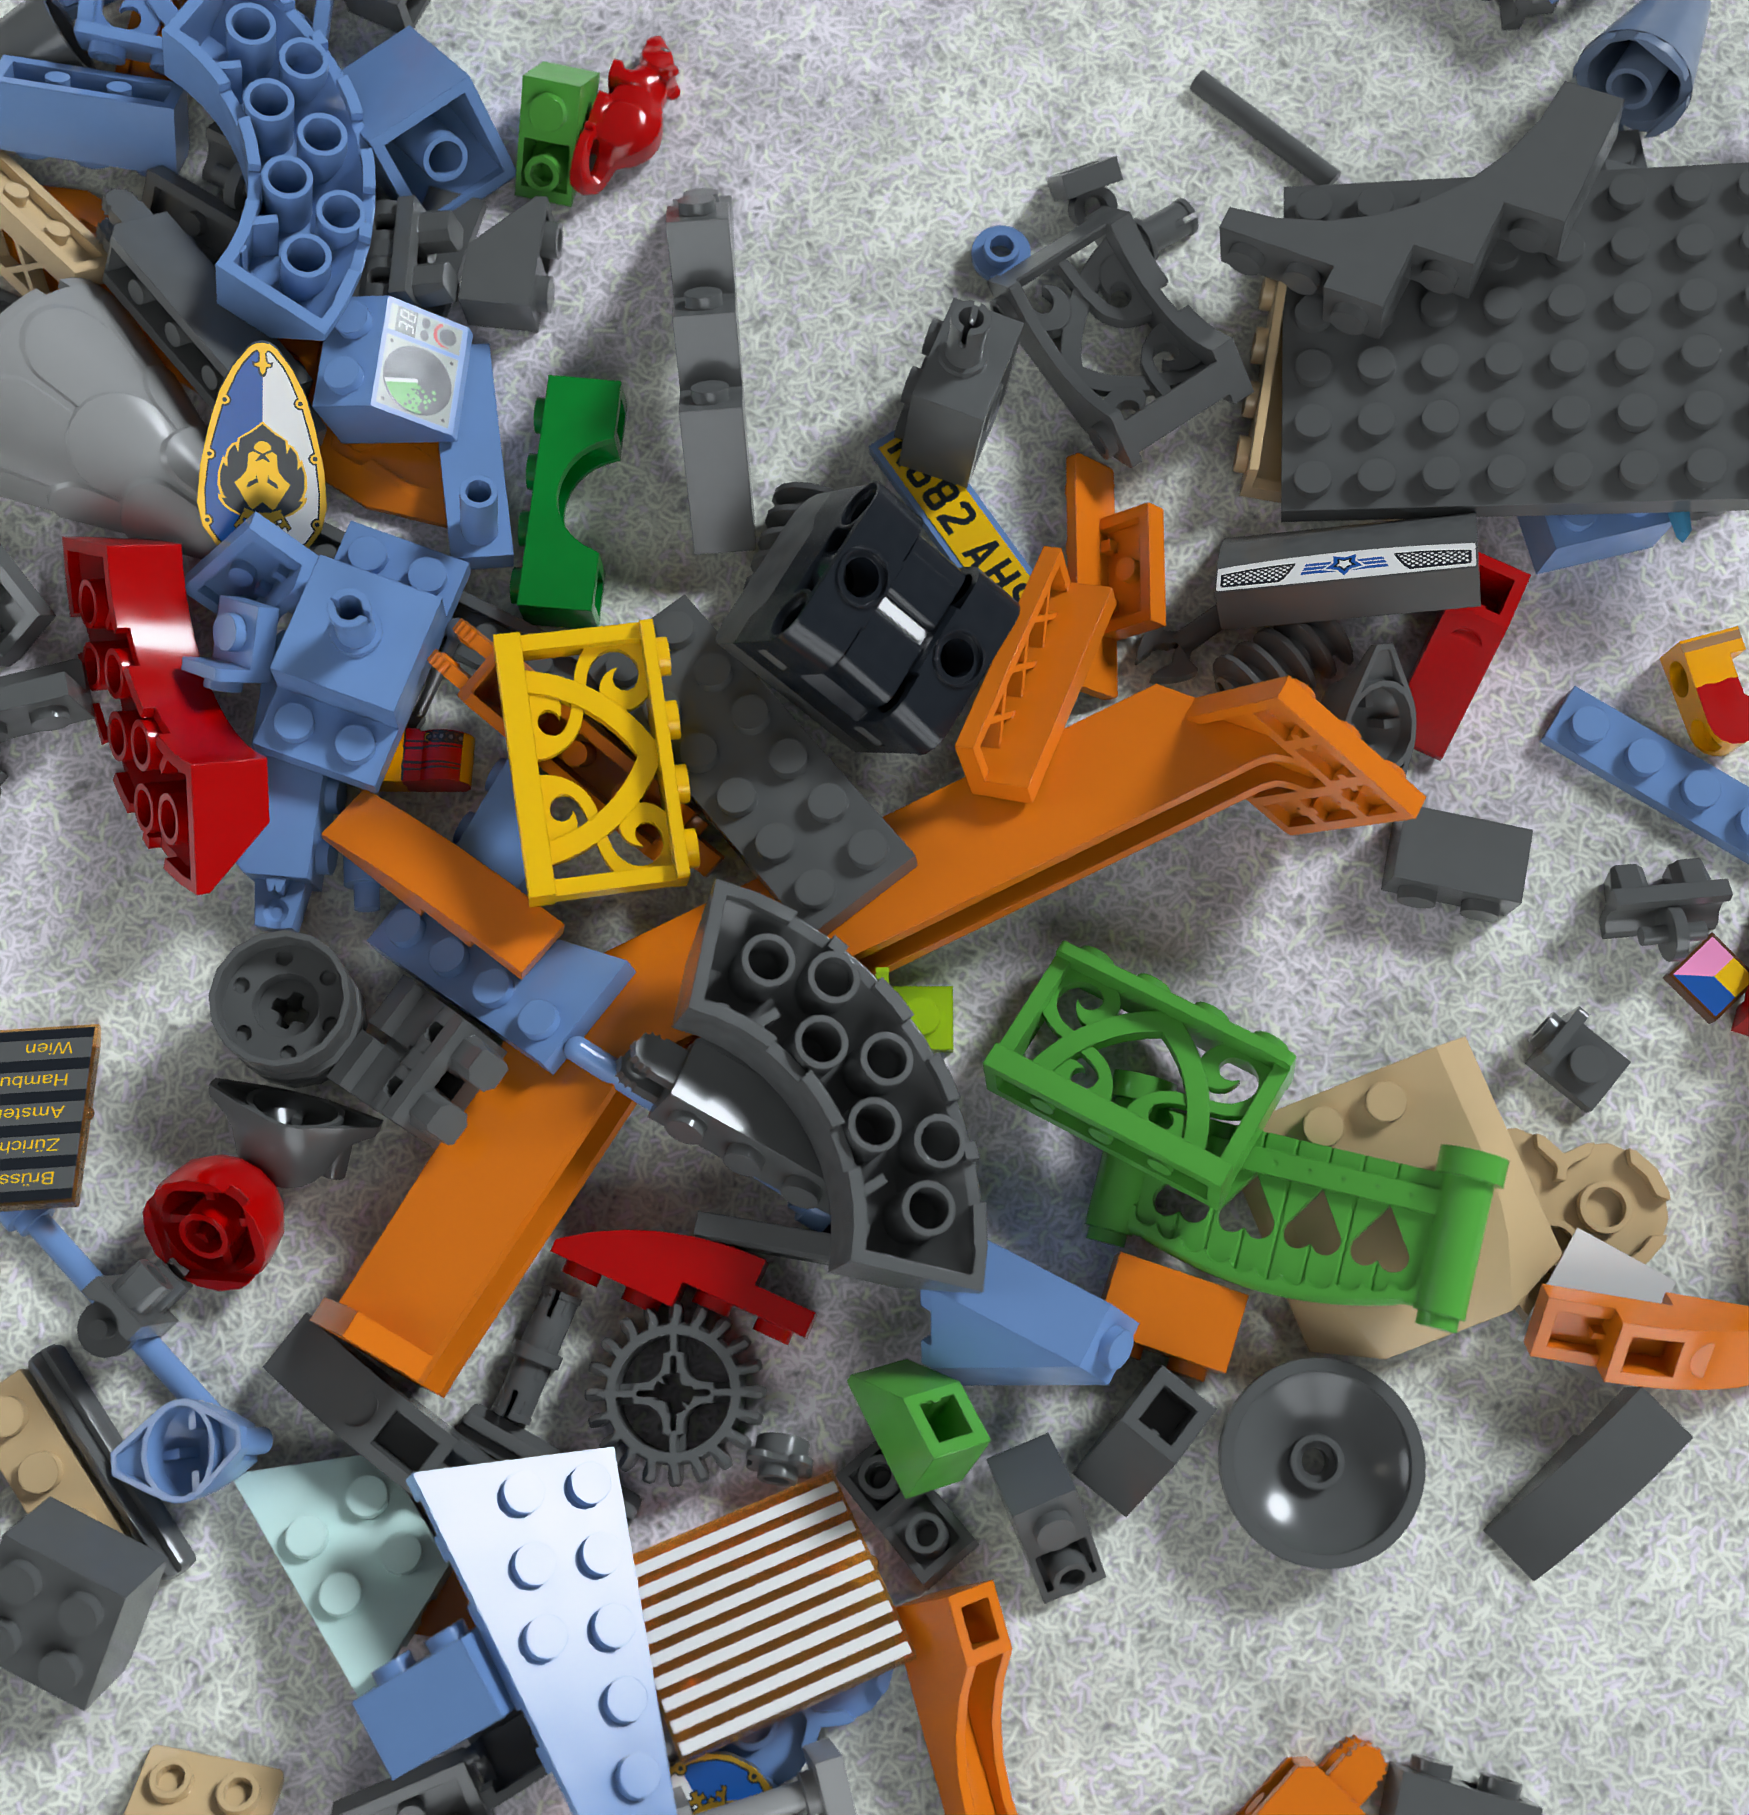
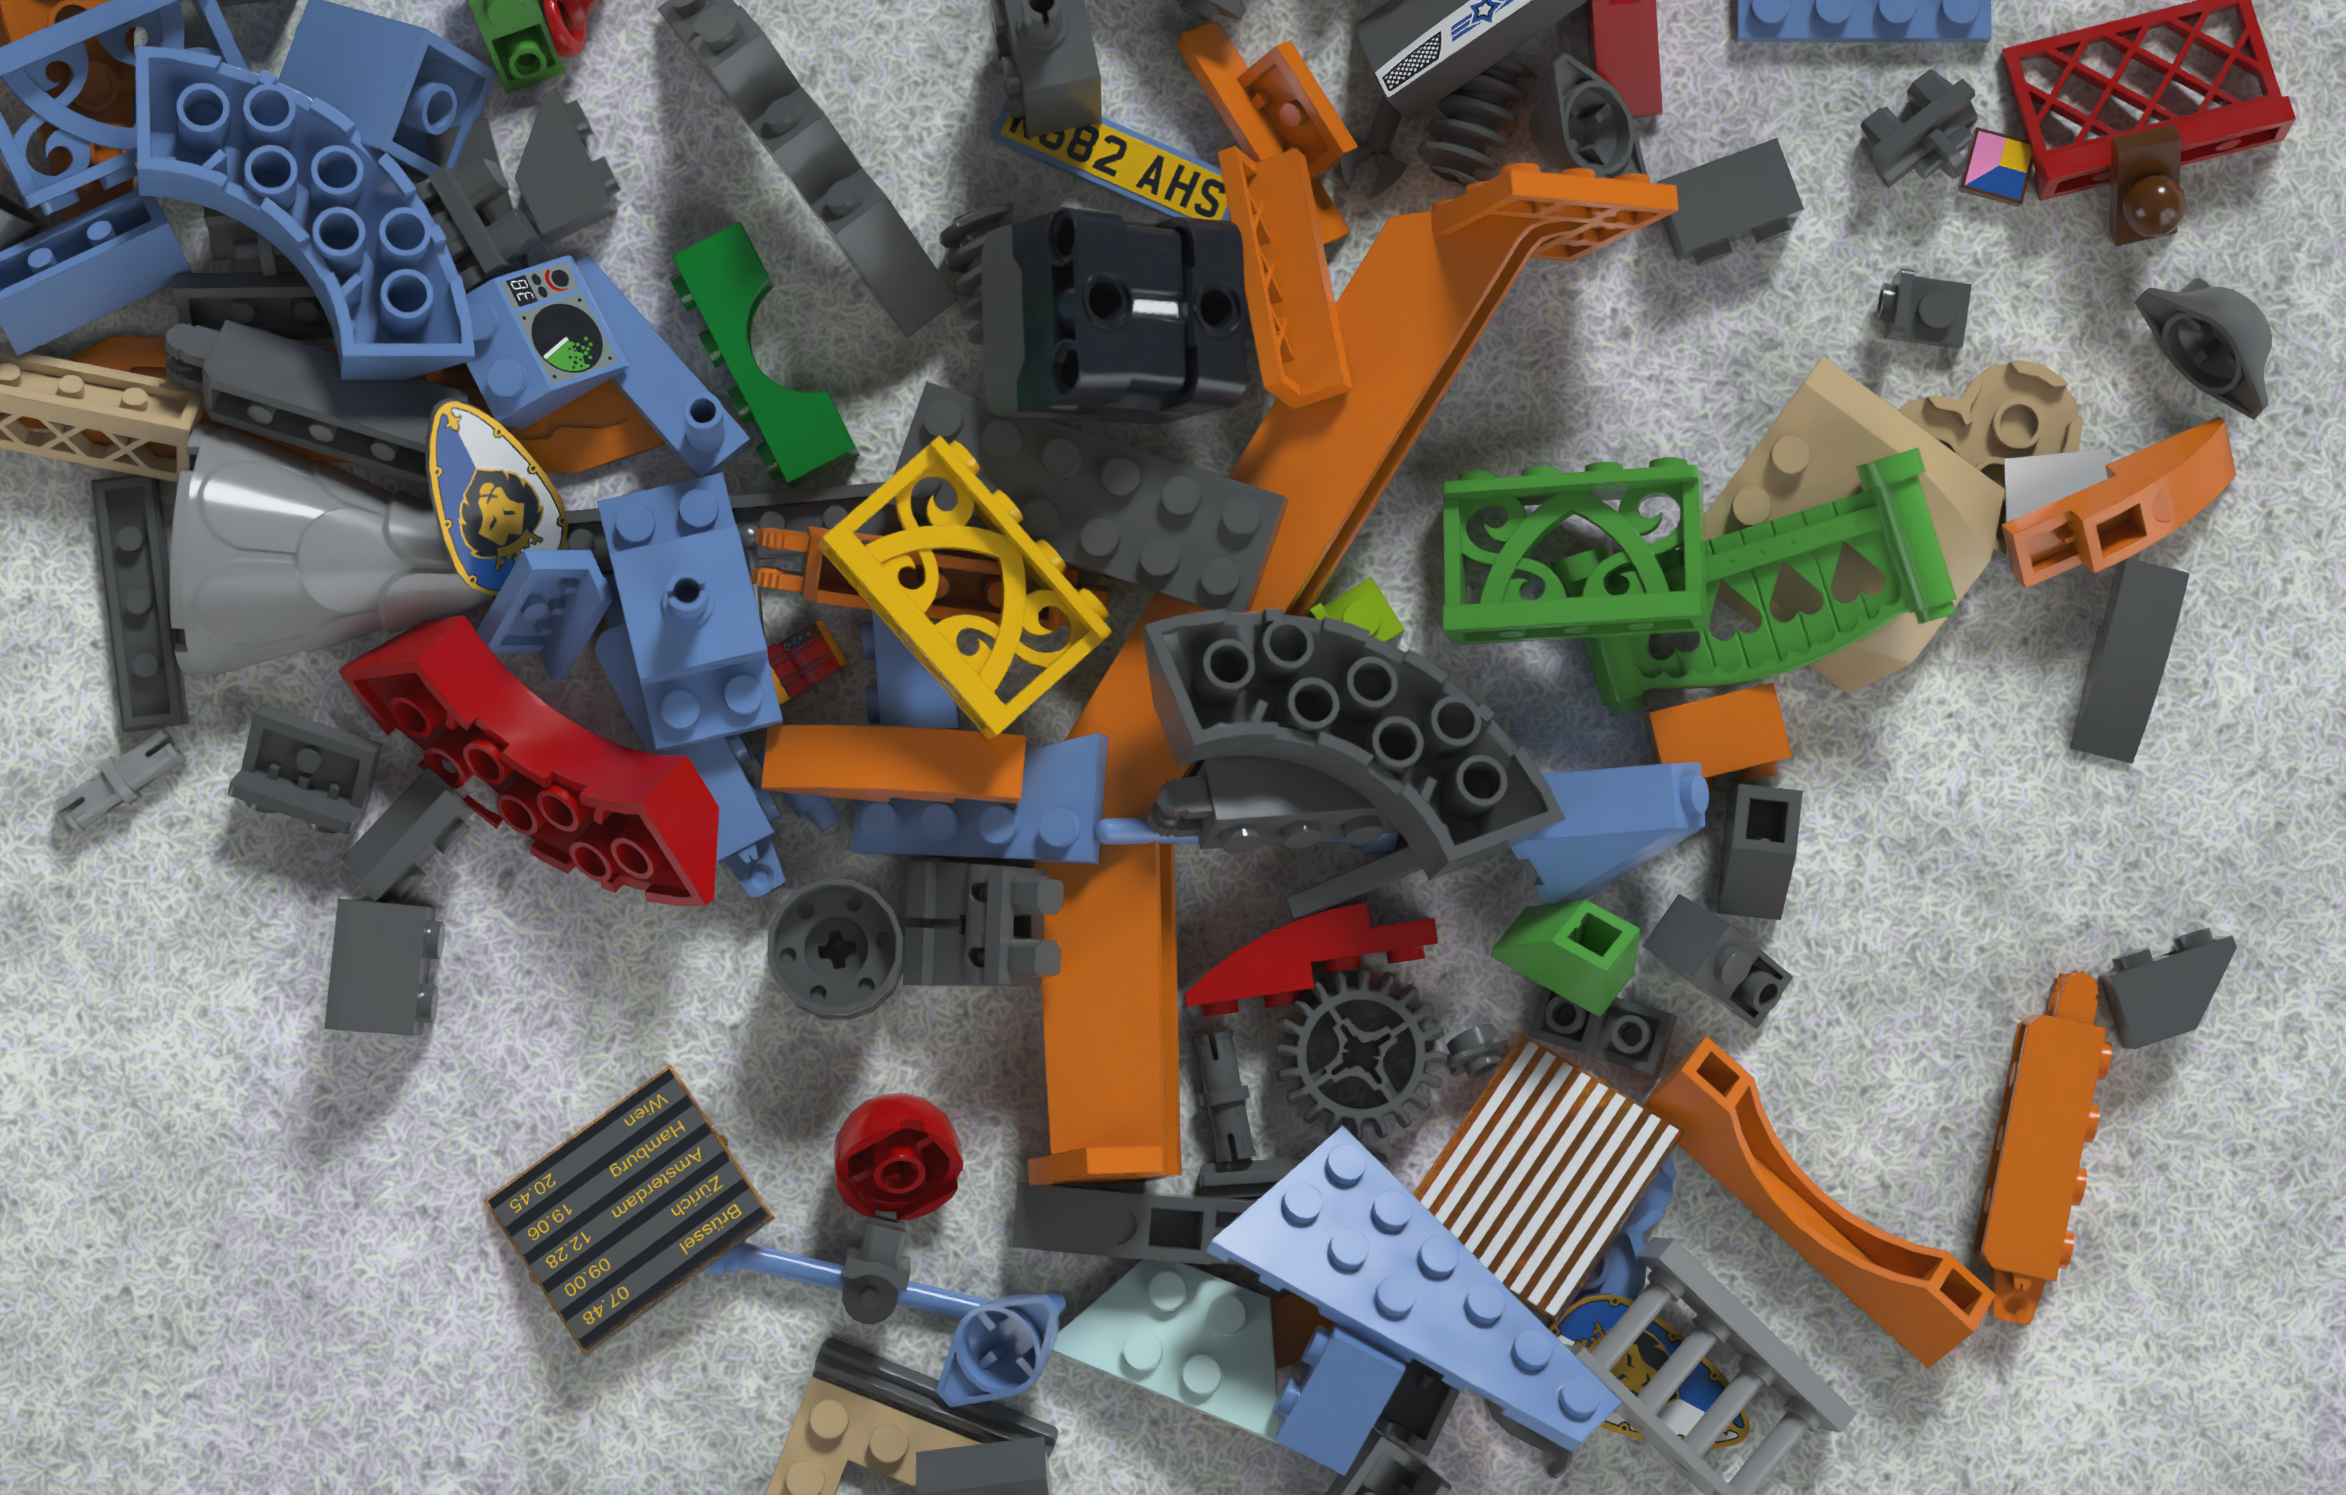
camera: 35 degrees left, 10 degrees up
(242, 646) = (578, 671): medium blue bracket -> none
(291, 1132) = (904, 1046): dark grey hat -> none
(1369, 1472) = (1954, 768): dark grey dish -> none

